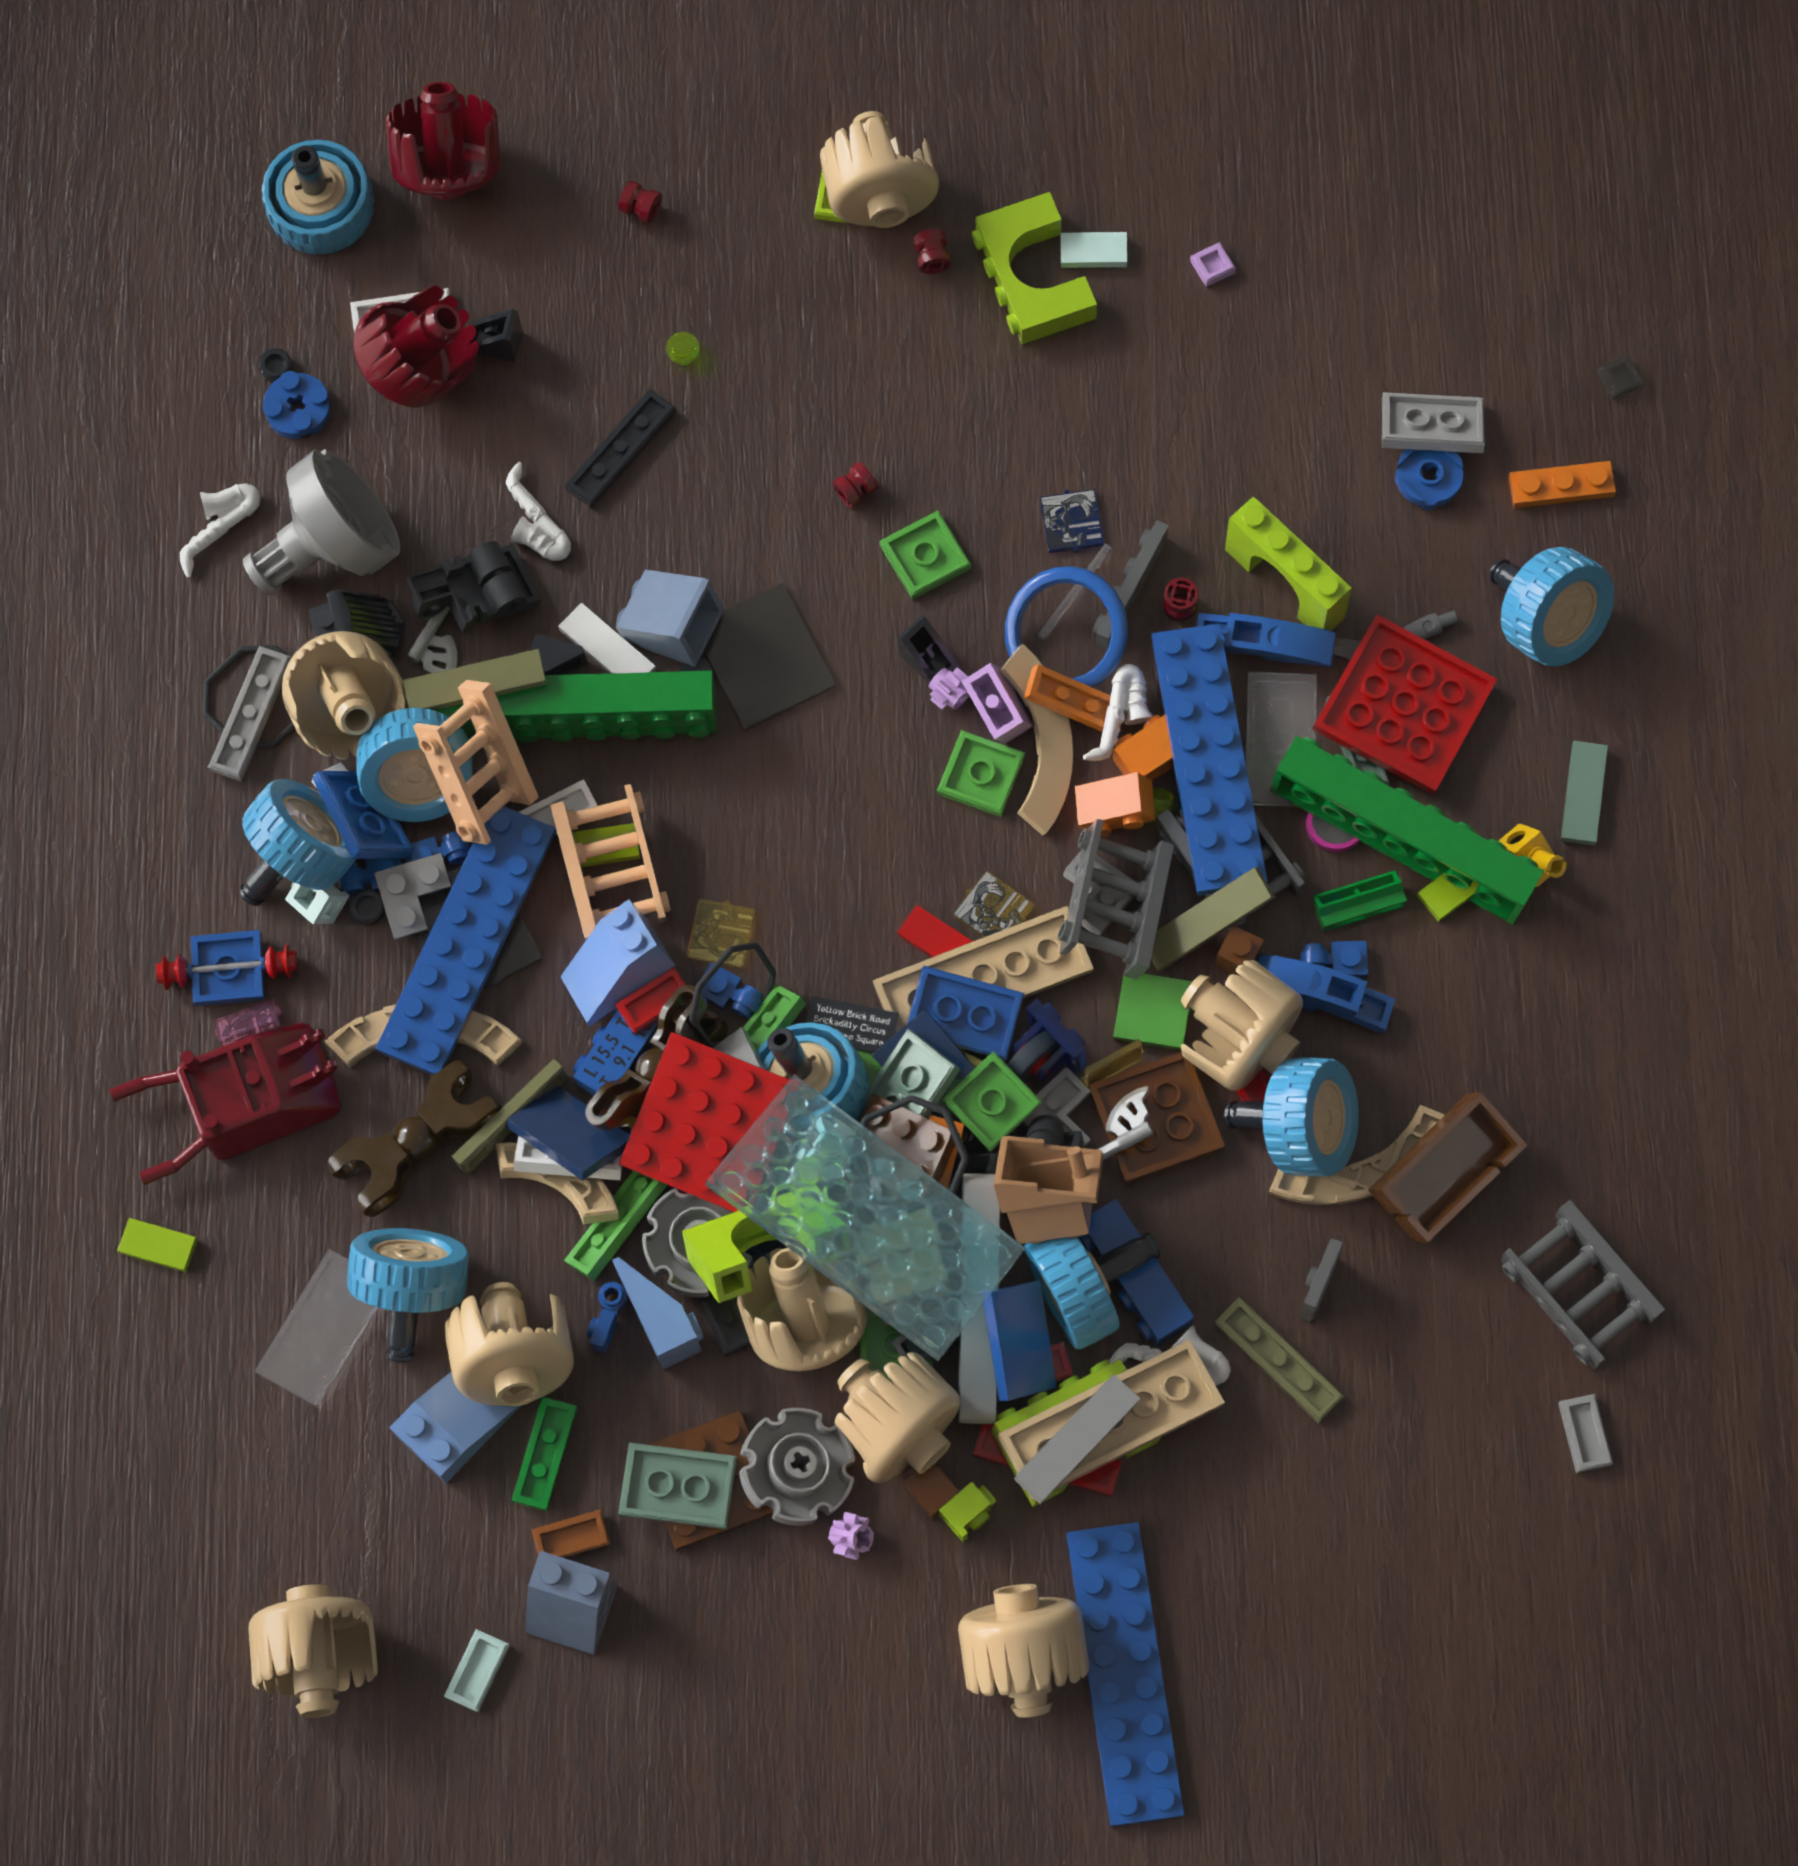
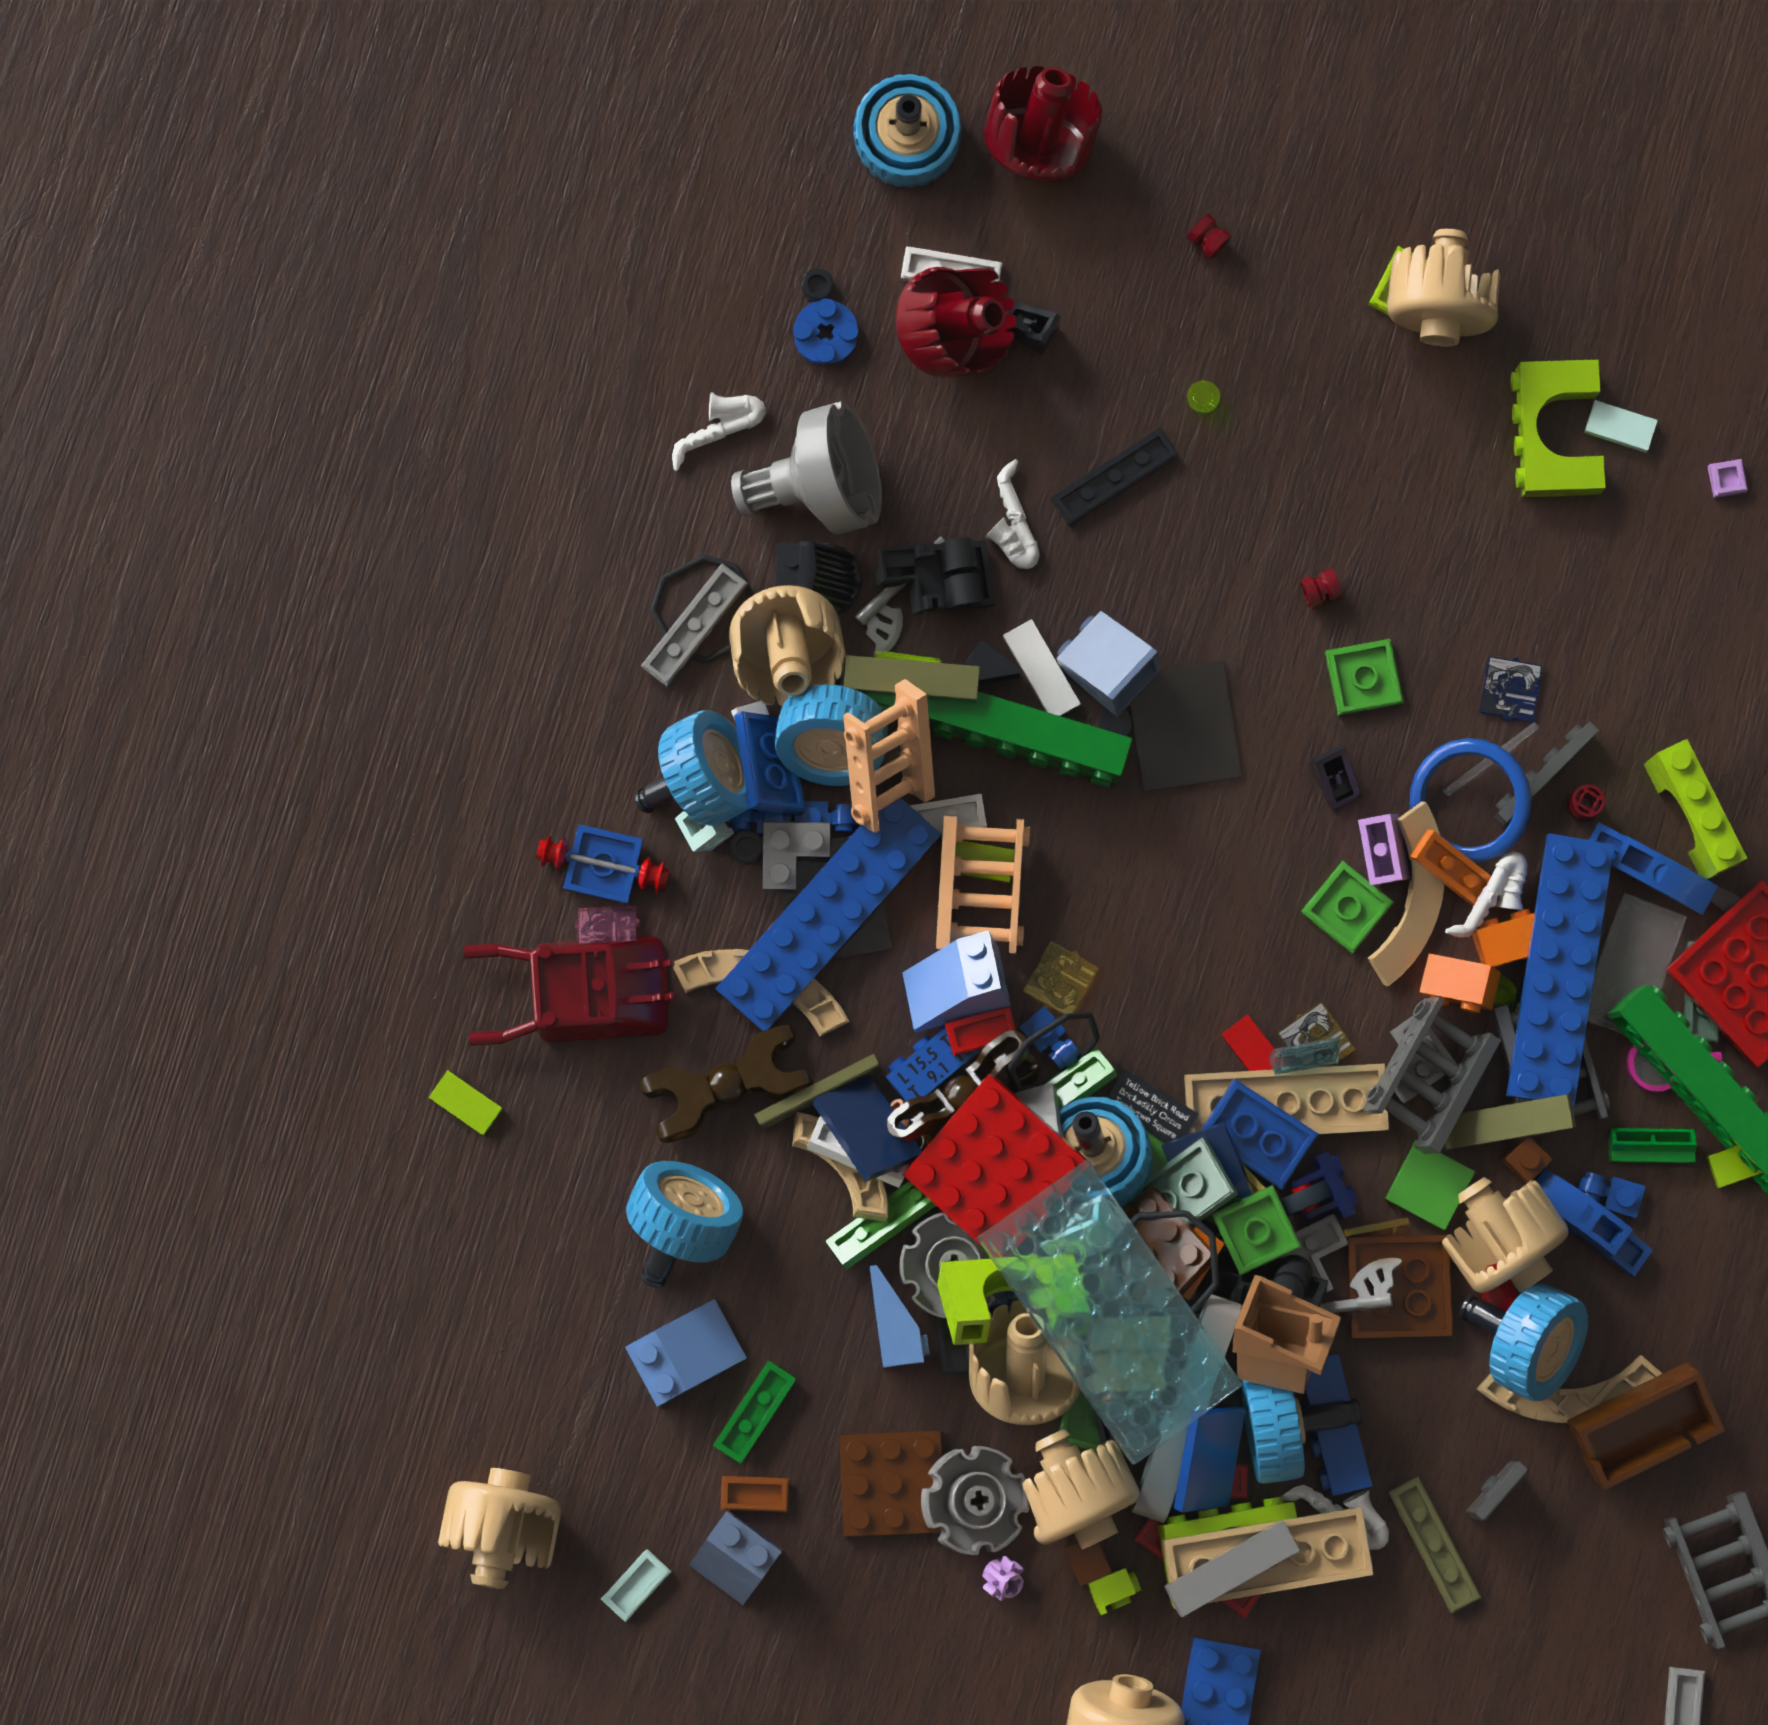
camera: 10 degrees right, 10 degrees up
(317, 1333) = (584, 1231): clear tile -> none
(499, 1356) = (740, 1313): tan piece -> none
(603, 1328) = (841, 1315): blue plate -> none
(677, 1486) = (864, 1483): sand green tile -> none
(932, 251) = (1468, 379): dark red wheel -> none
(948, 688) = (1344, 818): lavender gear -> none
(985, 921) = (1305, 1056): none -> clear light blue slope

